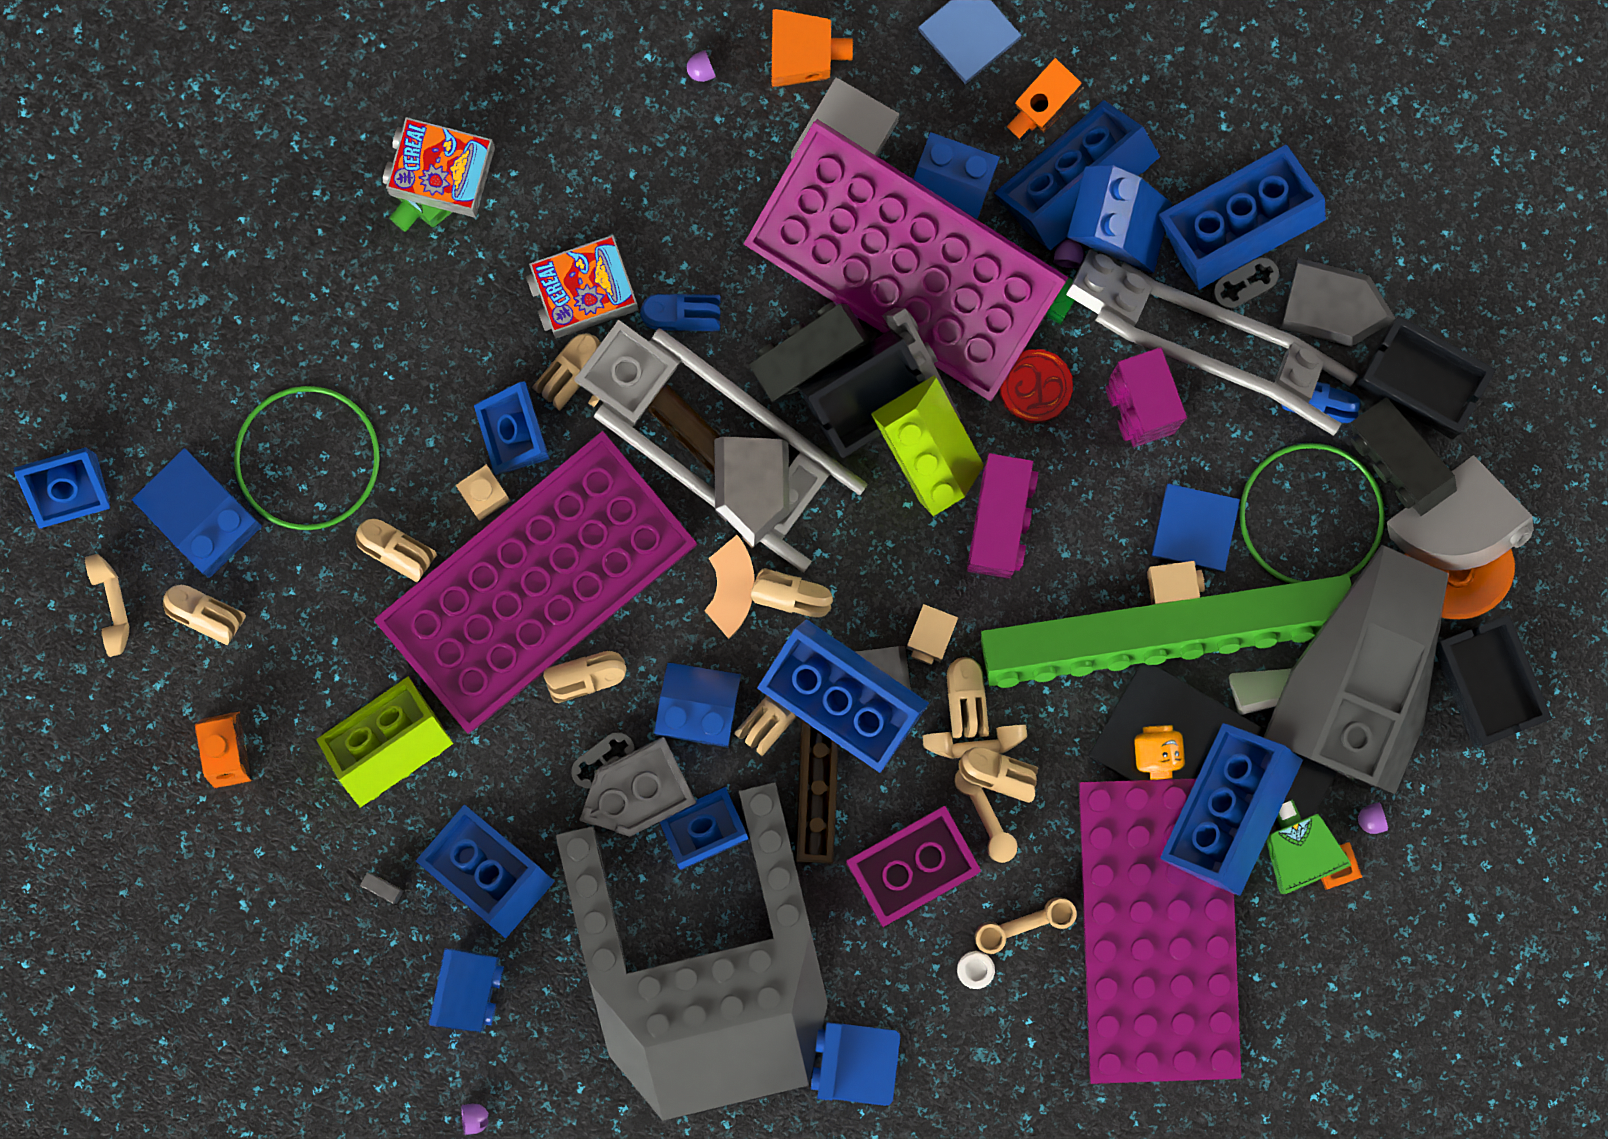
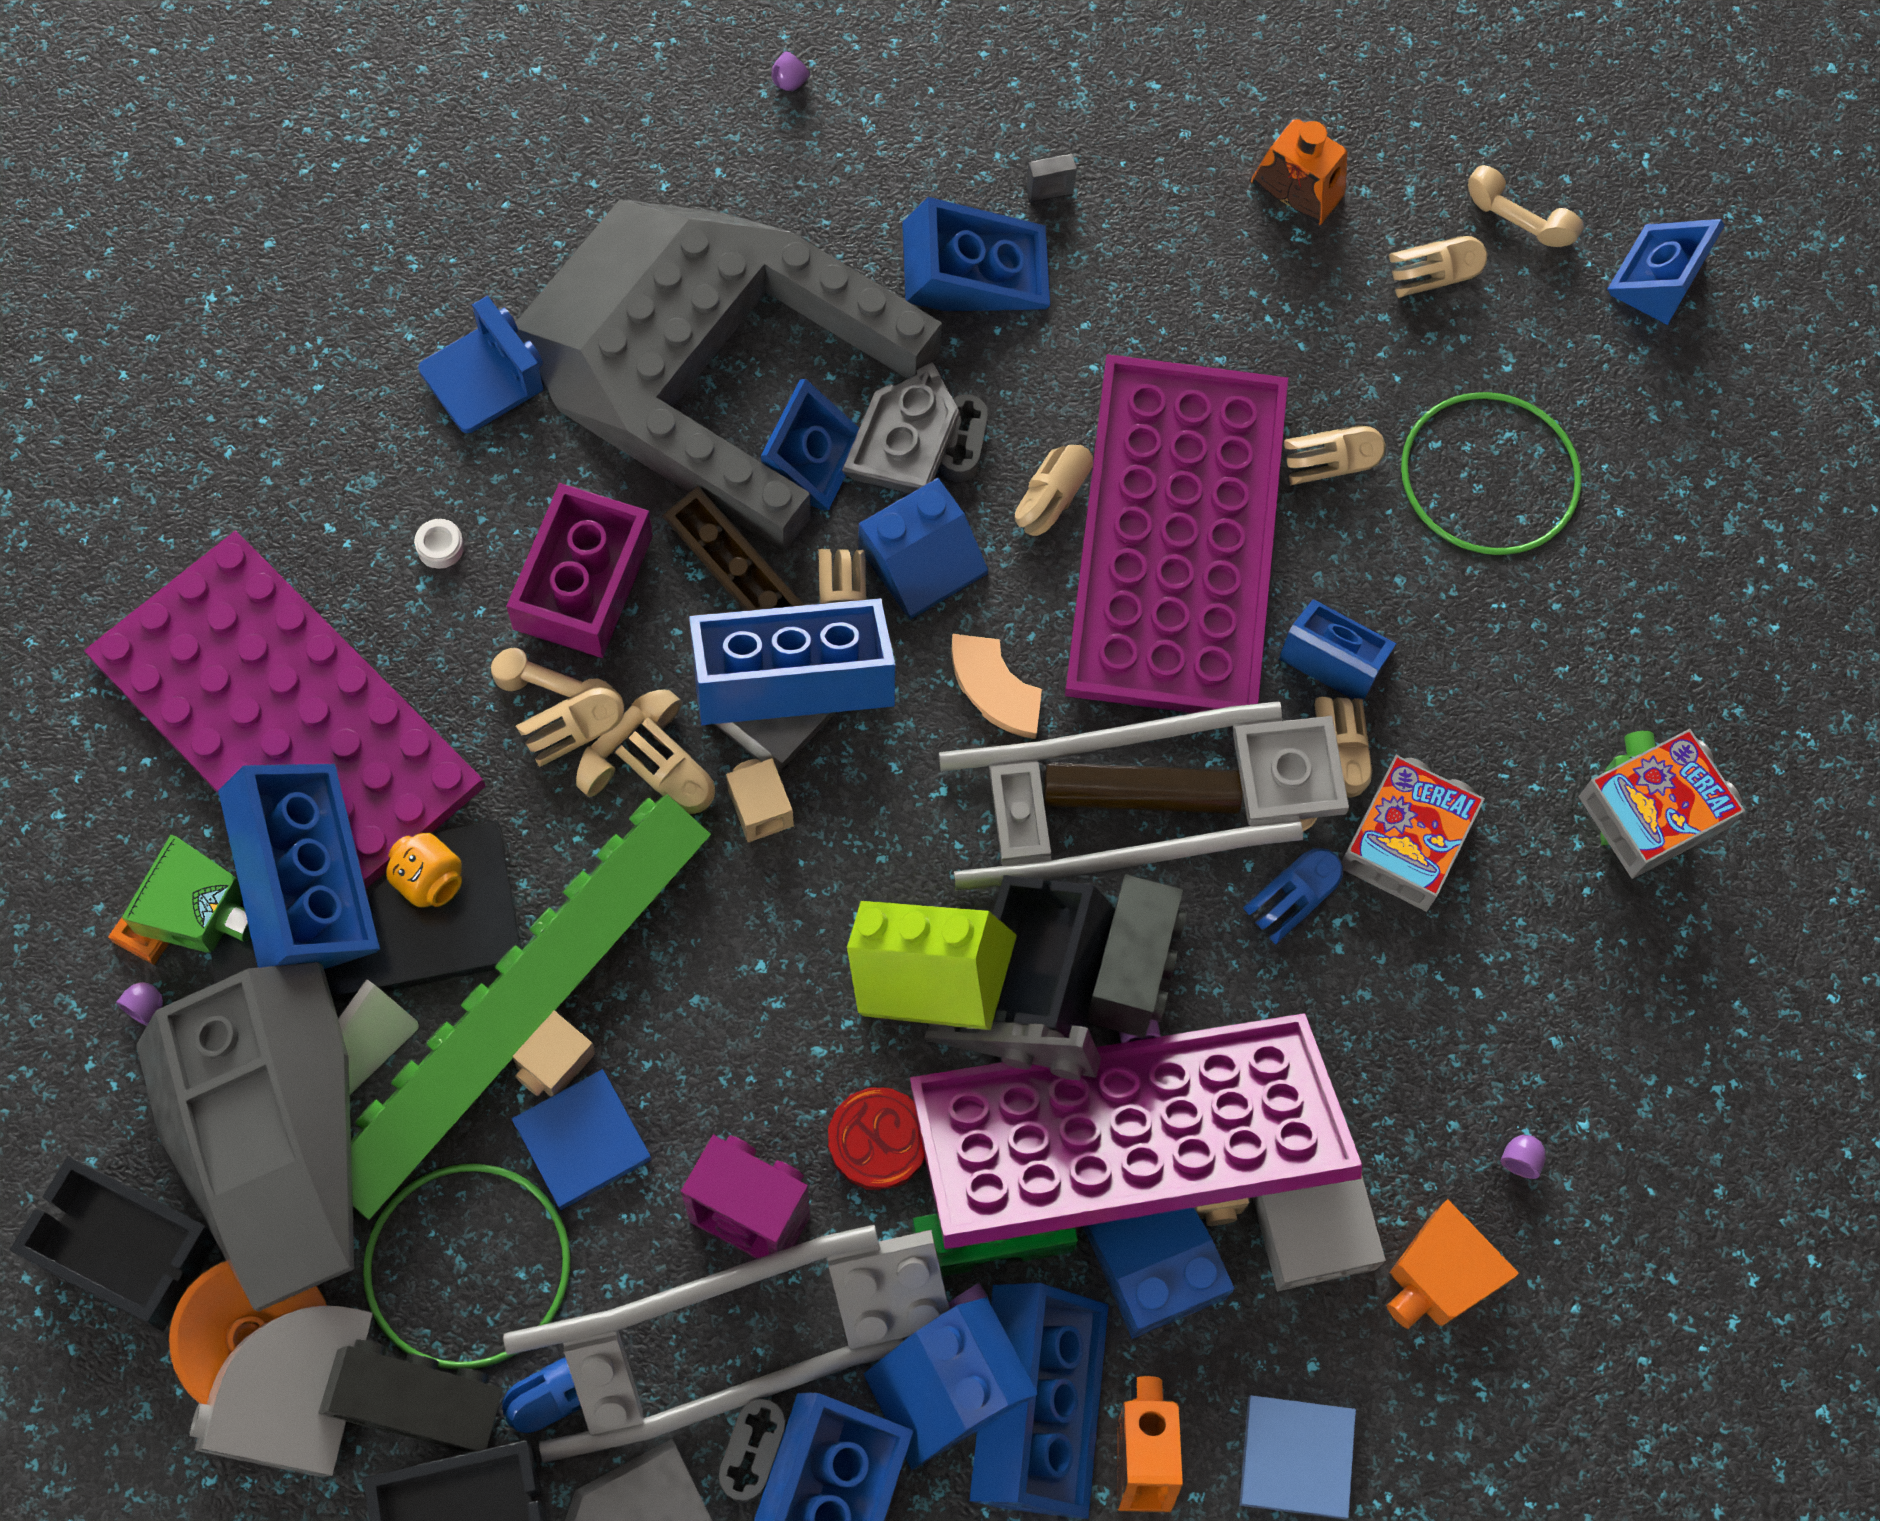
camera: 135 degrees right, 15 degrees down
(196, 513) = (1530, 339): blue slope -> none
(384, 742) = (1172, 289): lime slope -> none
(466, 990) = (897, 137): blue slope -> none
(483, 492) = (1307, 564): tan brick -> none
(751, 484) = (1066, 776): flat silver tile -> none
(791, 594) = (931, 721): tan arm -> none
(1002, 516) = (792, 959): magenta brick -> none
(1057, 911) = (451, 580): tan bar -> none

